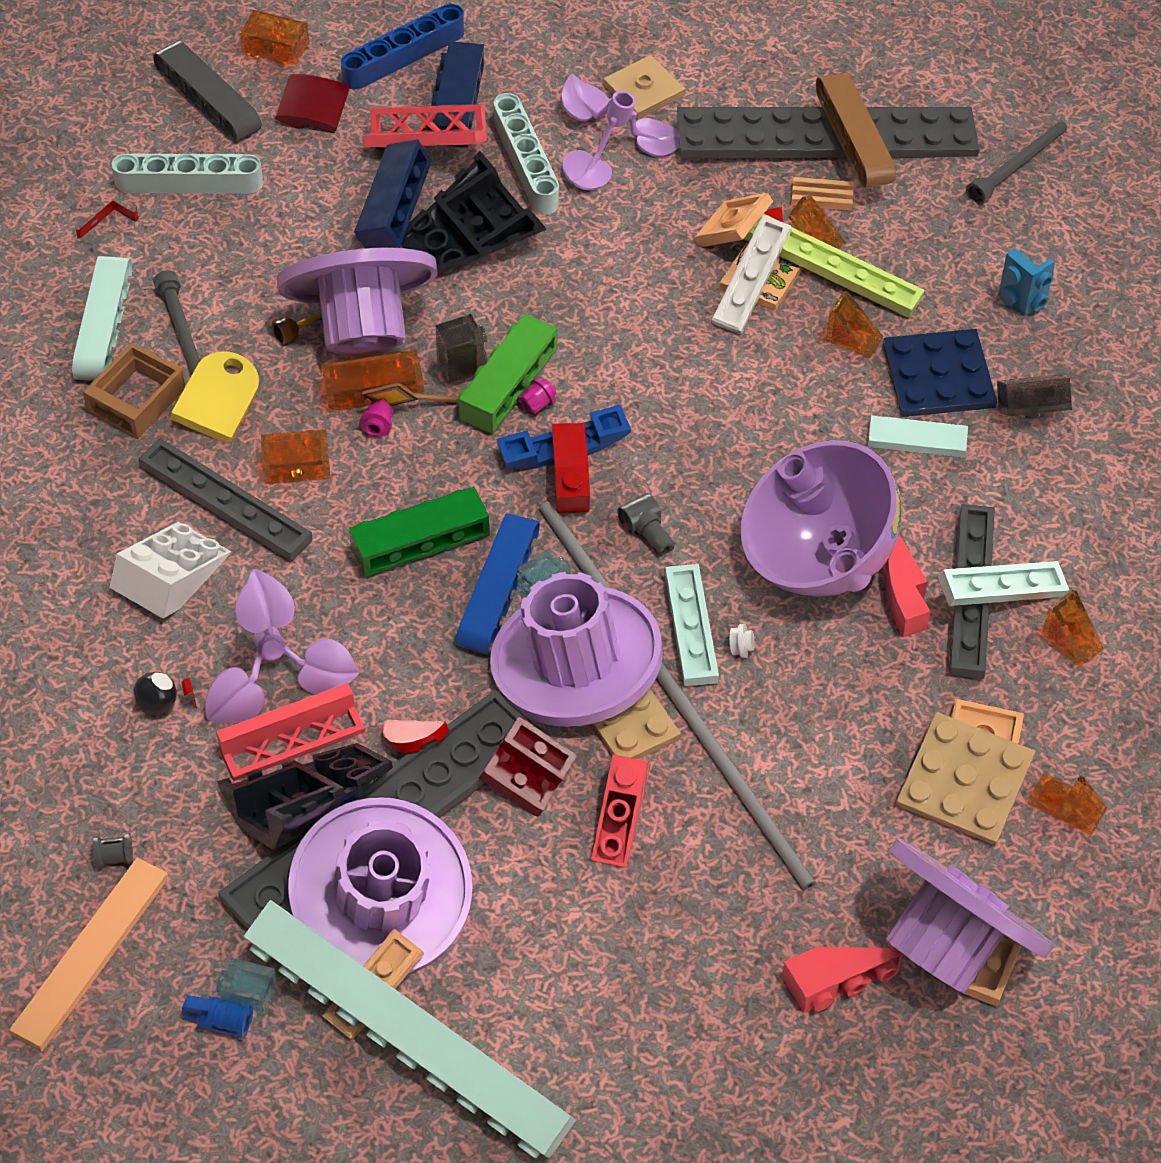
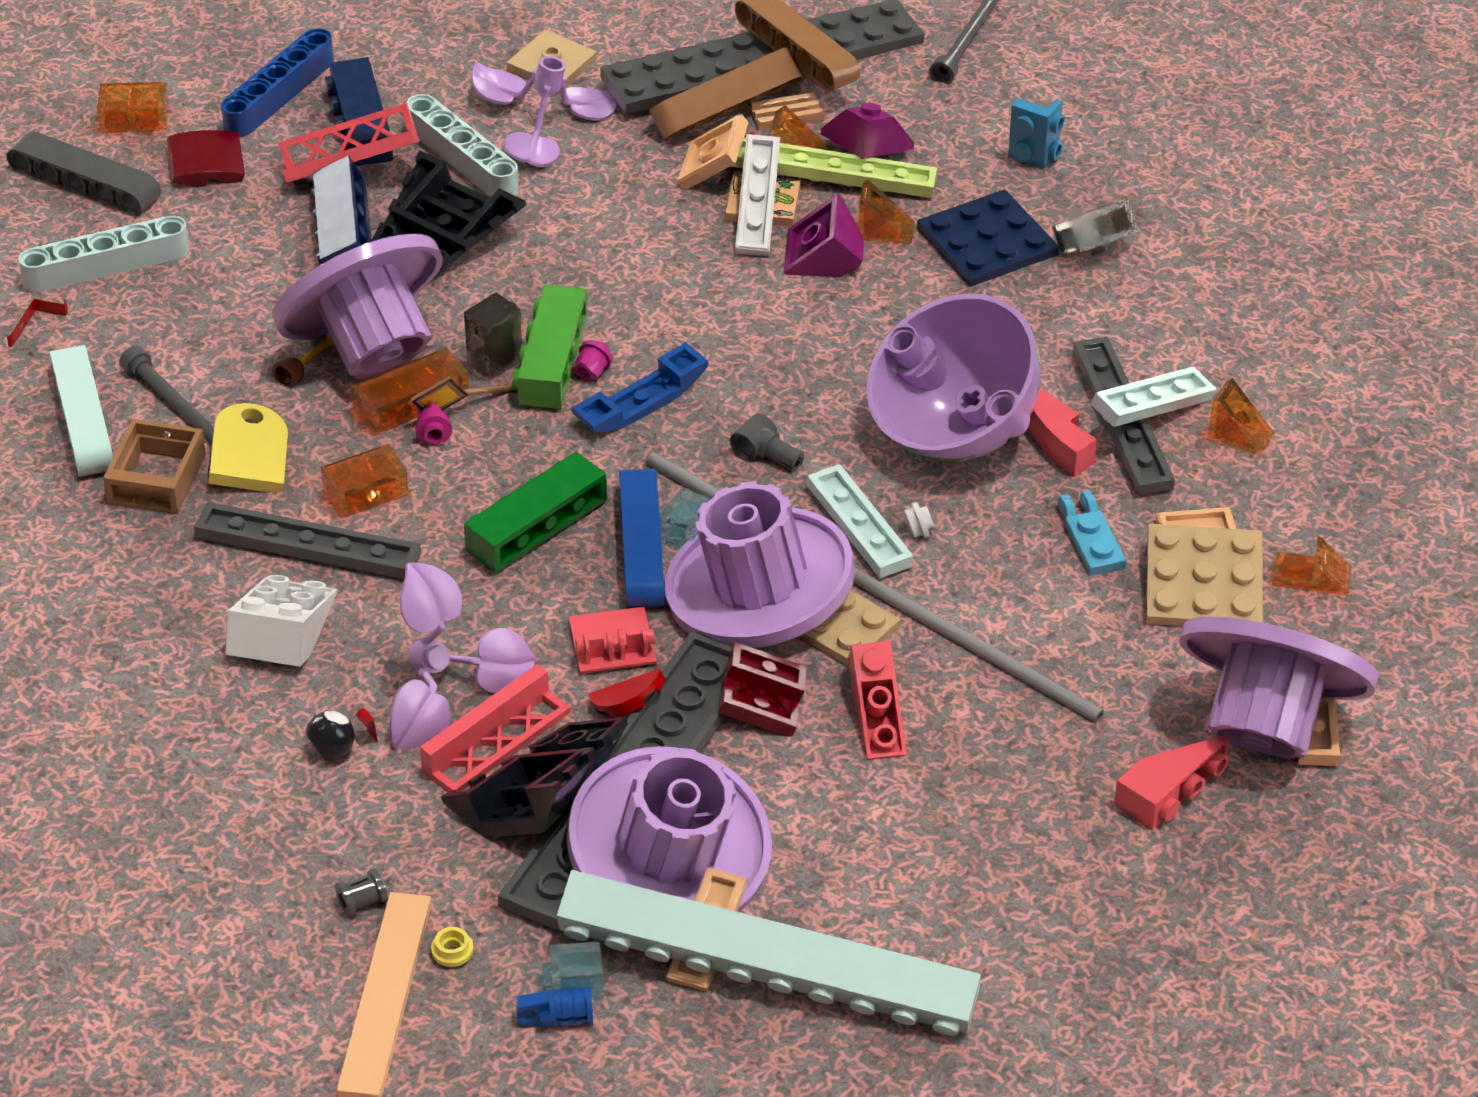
camera: 20 degrees left, 10 degrees down
(161, 917) = (449, 938): none -> light yellow plate
(429, 674) = (612, 640): none -> coral hinge
(571, 468) = (664, 414): red slope -> none
(772, 164) = (725, 93): none -> medium nougat beam
(790, 338) = (824, 242): none -> magenta slope
(876, 240) = (867, 132): none -> magenta slope
(888, 704) = (1092, 535): none -> medium azure hinge
(918, 436) = (1020, 293): light aqua tile -> none

